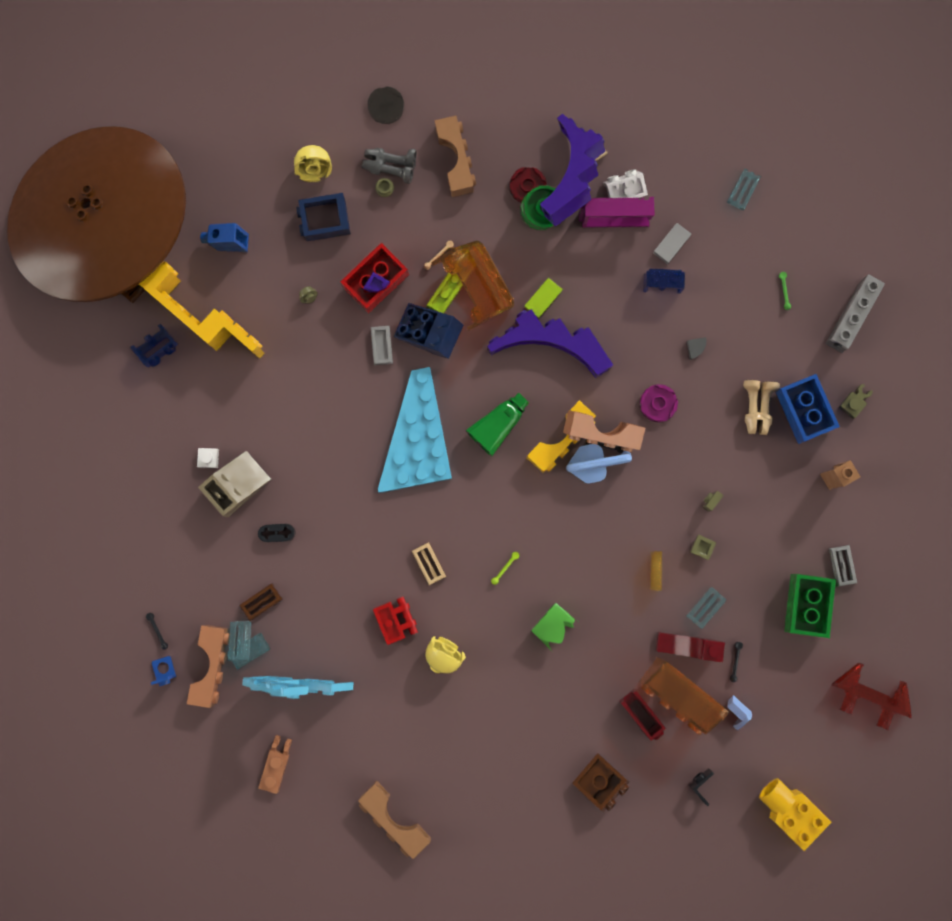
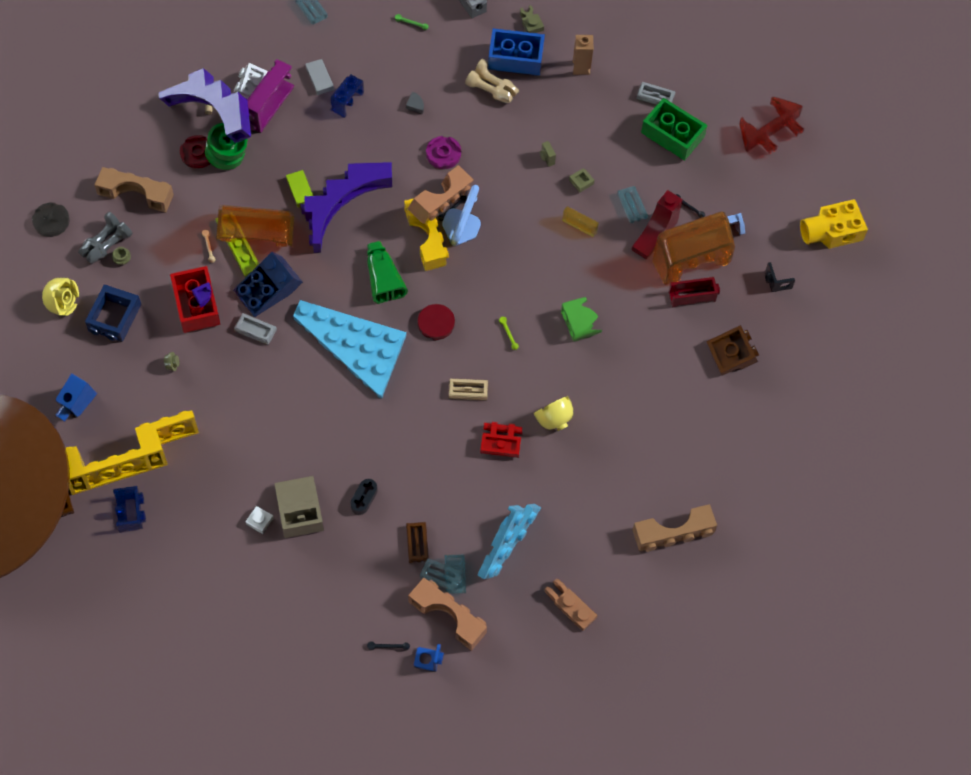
camera: 65 degrees left, 20 degrees down
(479, 497) = (436, 321): none -> dark red tile

